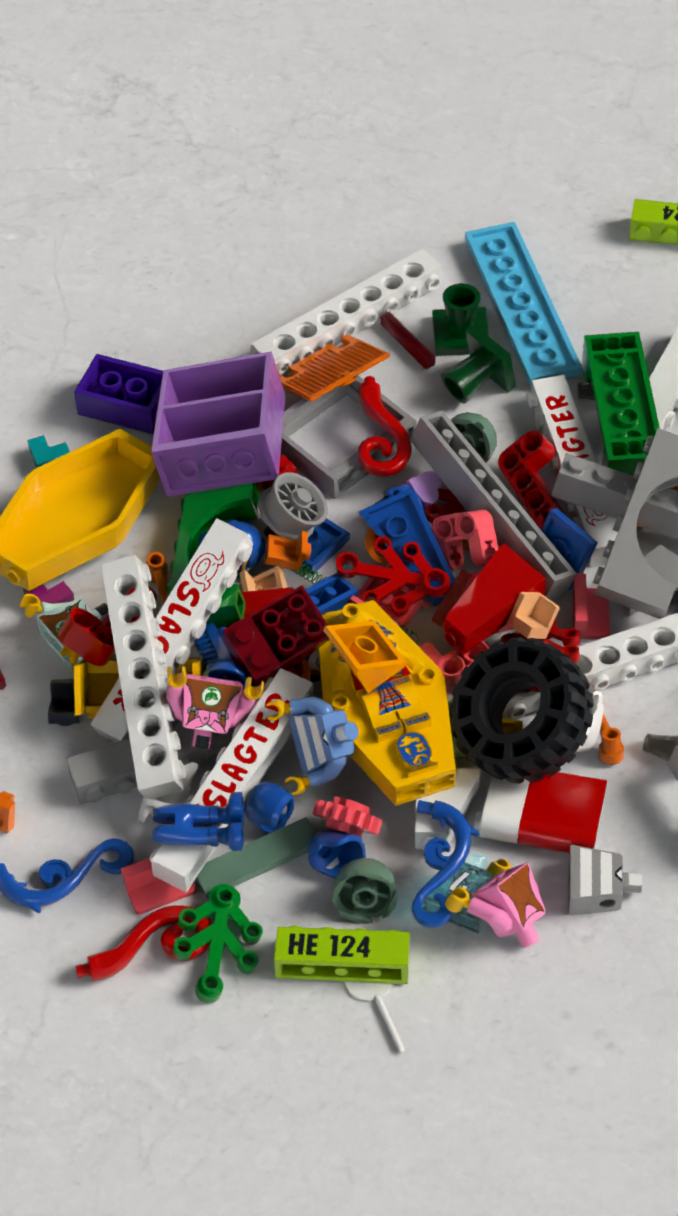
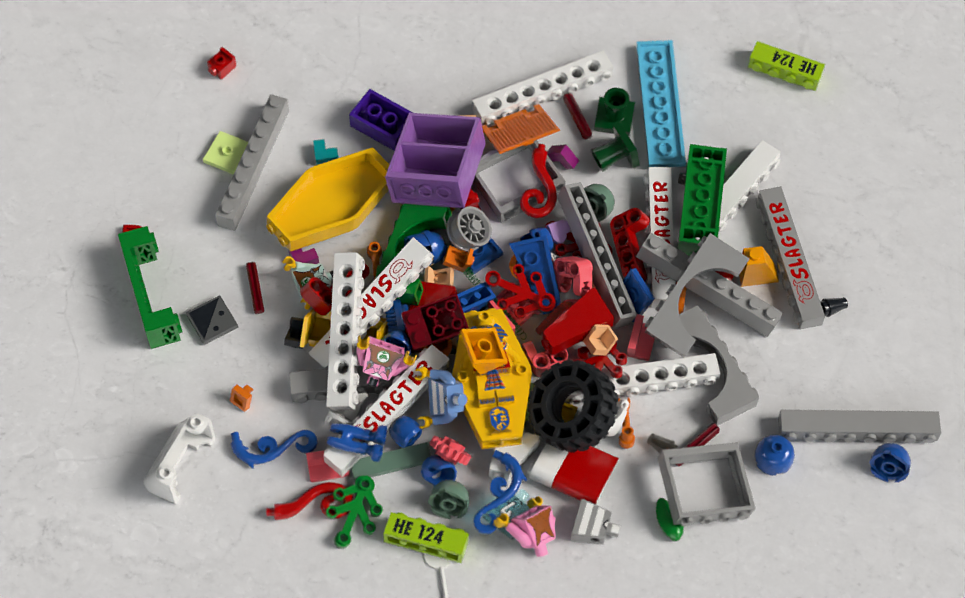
camera: 10 degrees right, 10 degrees up
(405, 390) = (564, 155): none -> magenta piece

